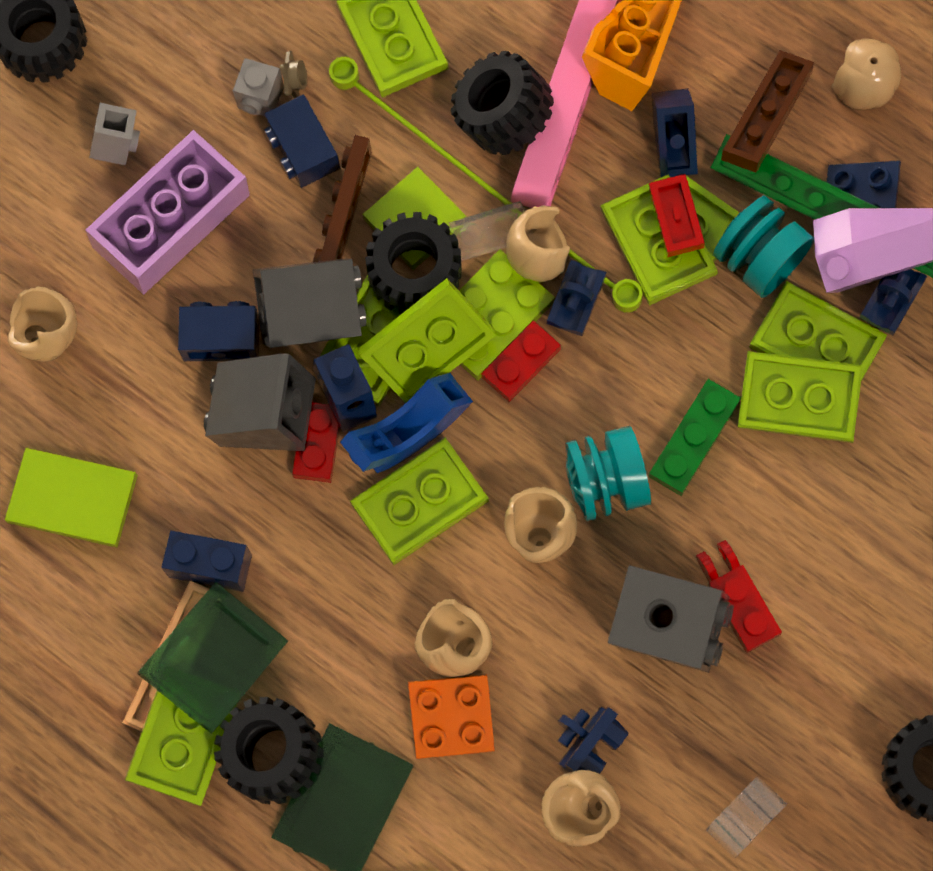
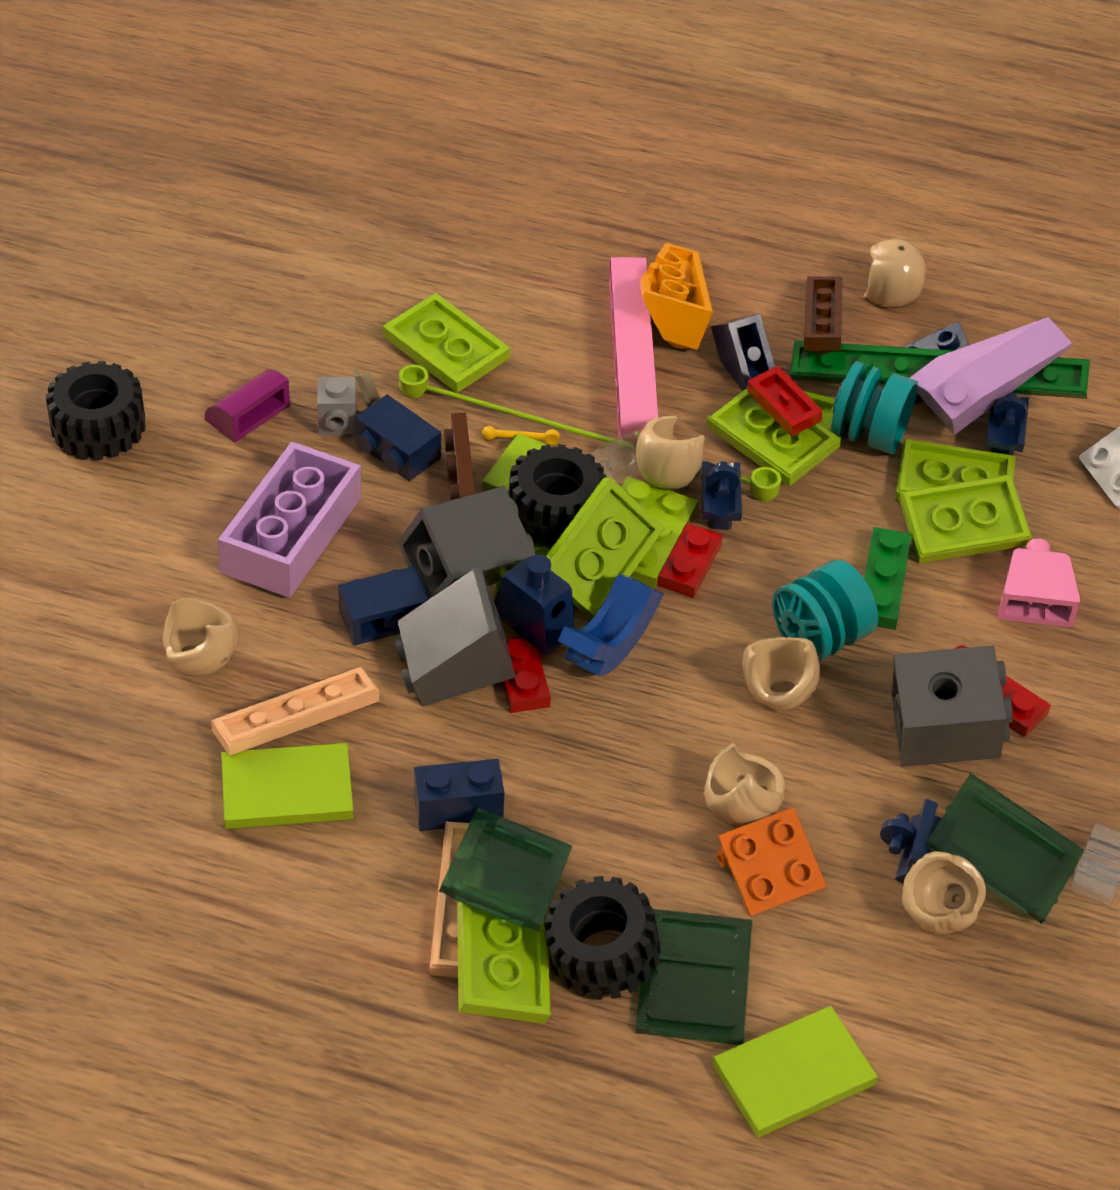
camera: 30 degrees left, 25 degrees down
(103, 423) = (295, 711): none -> light nougat tile
(114, 134) = (208, 470): light grey brick -> none
(182, 60) = (250, 405): none -> magenta brick
(394, 155) = (550, 437): none -> yellow hinge
(419, 501) = (646, 696): lime tile -> none
(502, 103) = (580, 357): black tyre -> none
(662, 774) = (1007, 846): none -> clear green piece
(833, 496) = (1040, 587): none -> bright pink torso

